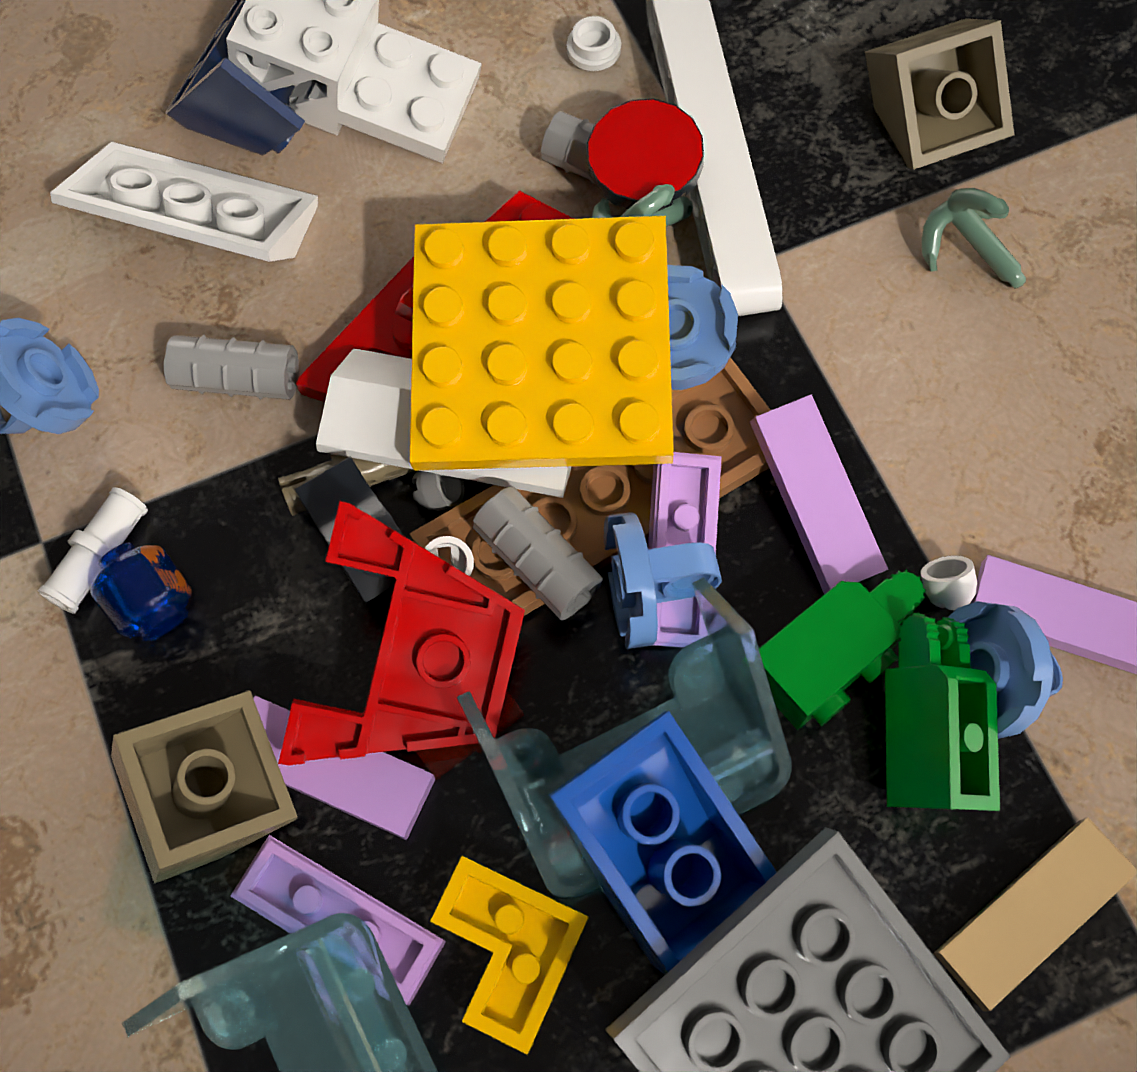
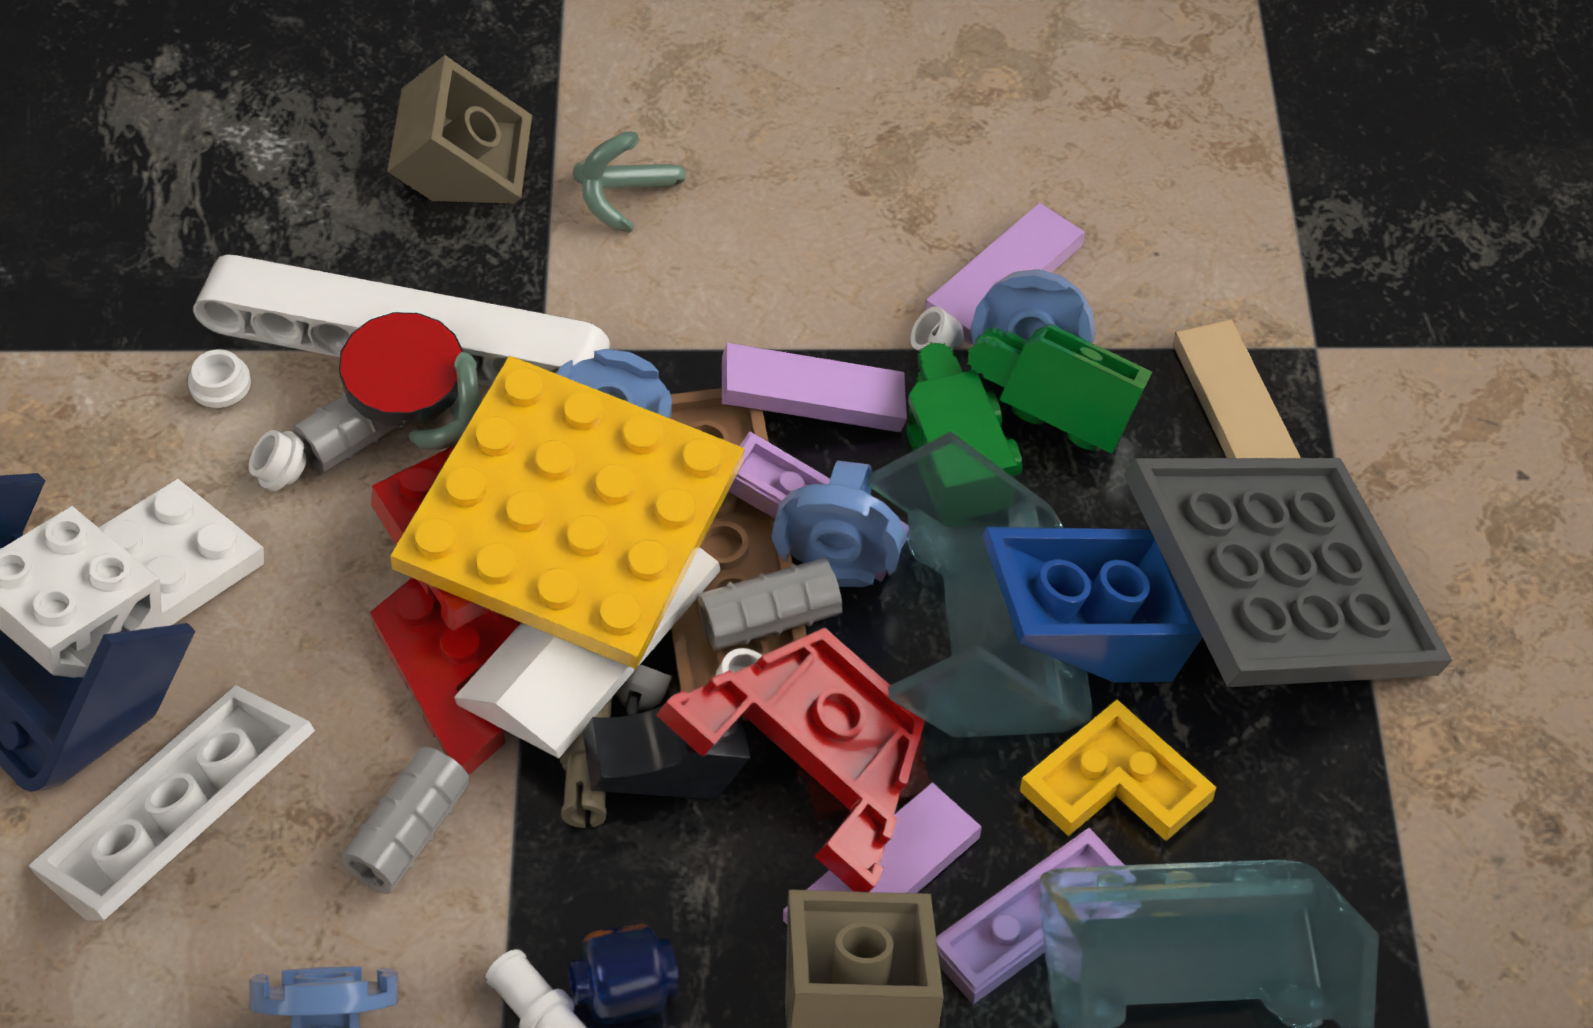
camera: 70 degrees left, 15 degrees down
(530, 119) = (277, 459): none -> white plate

